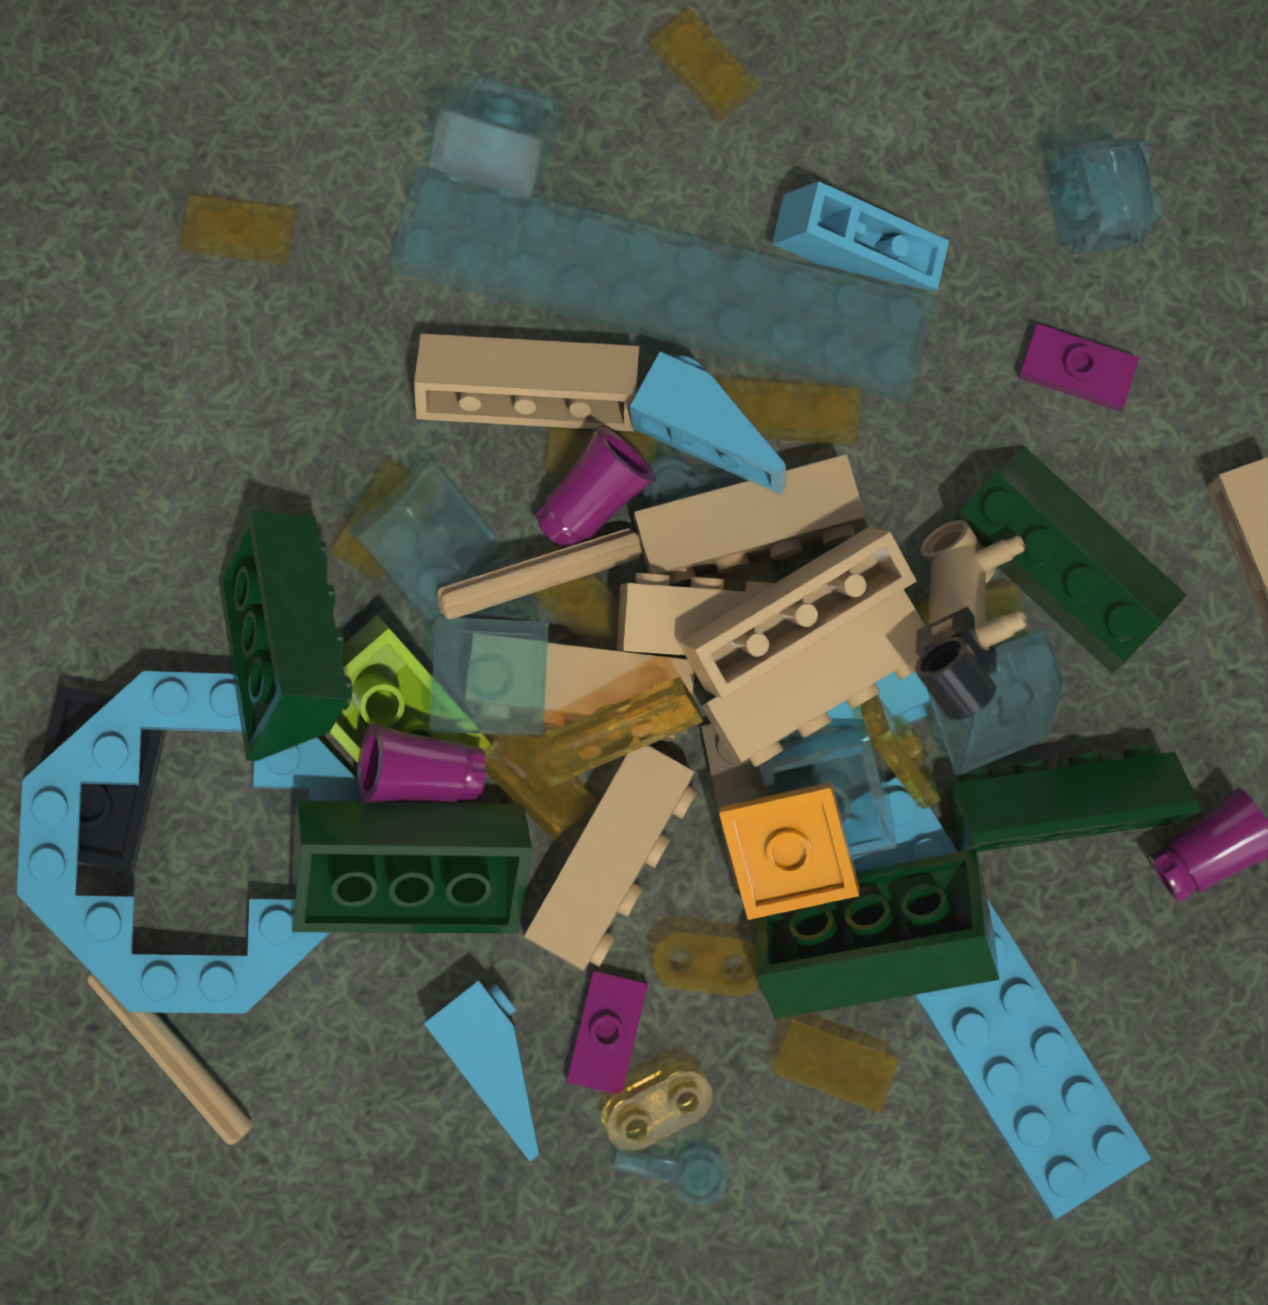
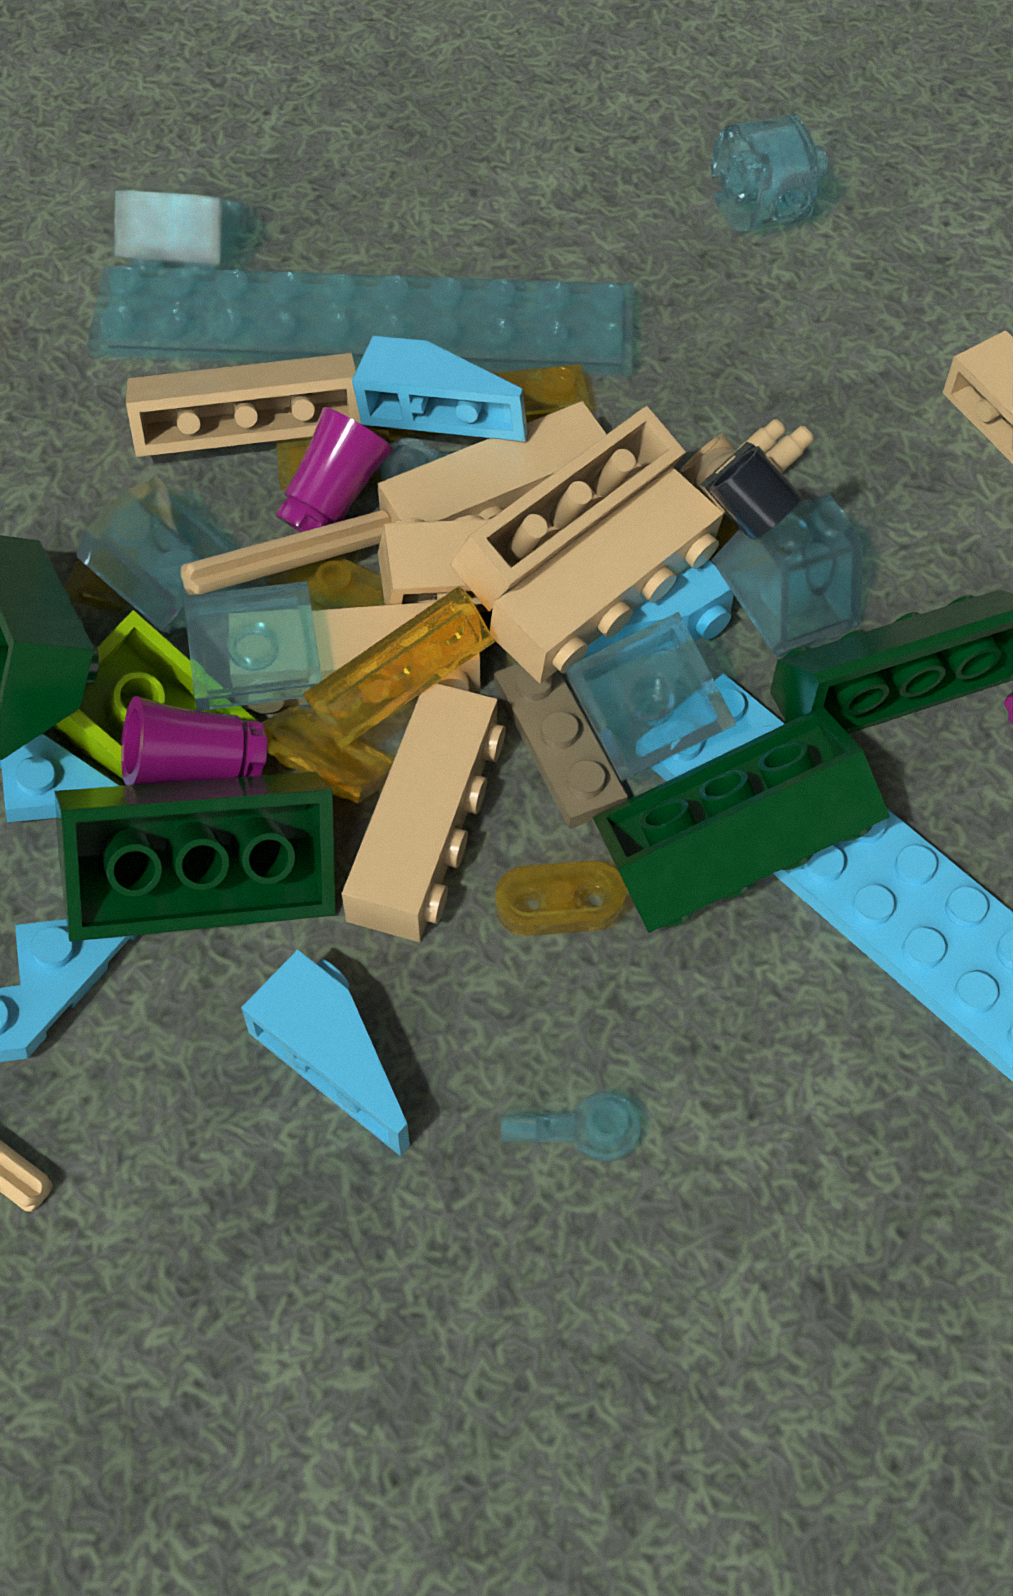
camera: 10 degrees left, 20 degrees down
(607, 1033) = (460, 997): magenta plate -> none
(656, 1104) = (539, 1056): clear yellow plate -> none
(704, 65) = (366, 156): clear yellow plate -> none
(789, 851) = (621, 744): light orange plate -> none
(835, 1066) = (731, 975): clear yellow plate -> none
(858, 237) = (529, 241): medium azure slope -> none
(901, 751) = (715, 638): clear yellow plate -> none
(1072, 560) = (880, 489): dark green slope -> none
(1078, 367) = (787, 318): magenta plate -> none

